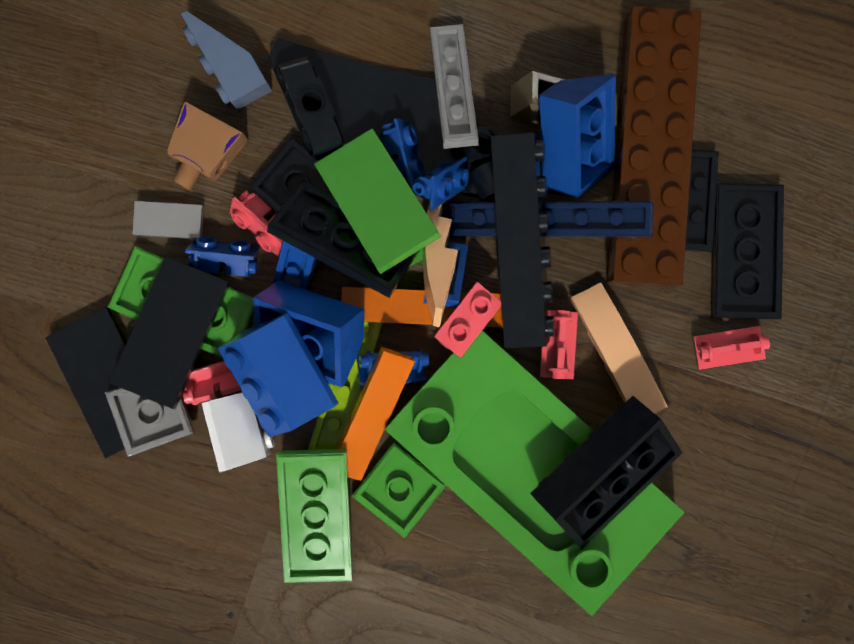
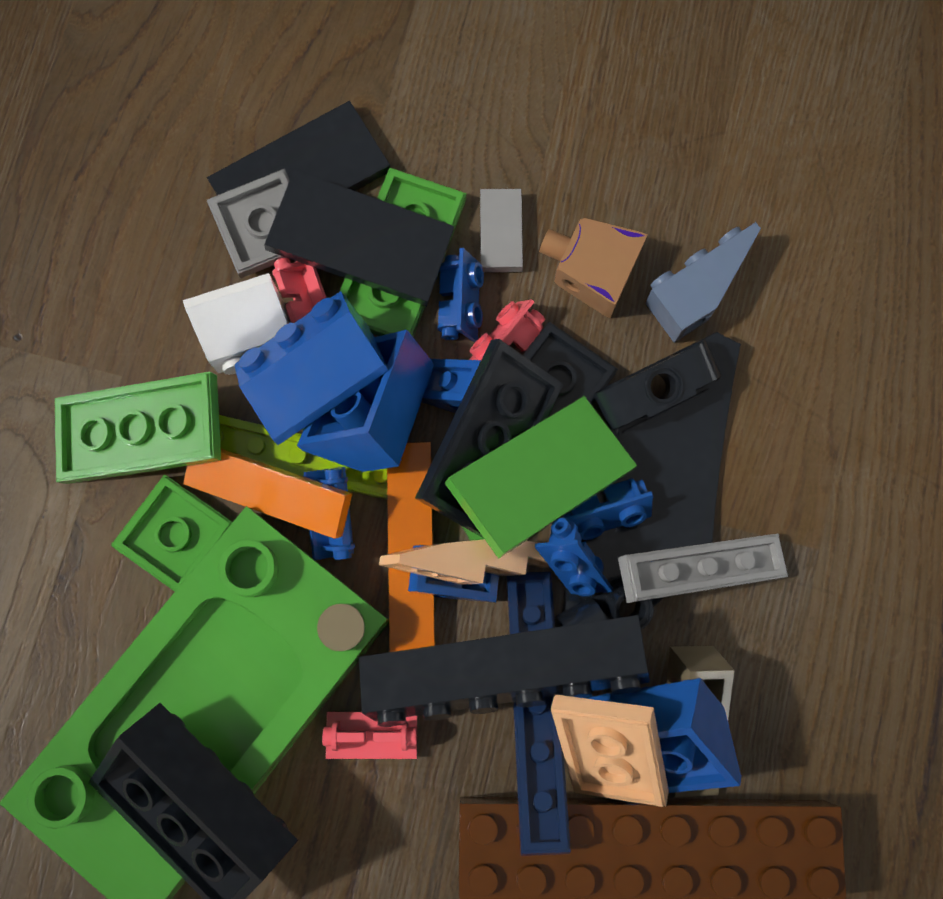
camera: 85 degrees right, 10 degrees down
(468, 320) = (393, 605): coral hinge -> none
(482, 359) = (341, 627): none -> dark tan tile
(584, 165) = (611, 749): none -> light nougat tile
(617, 348) = (365, 819): light nougat slope -> none

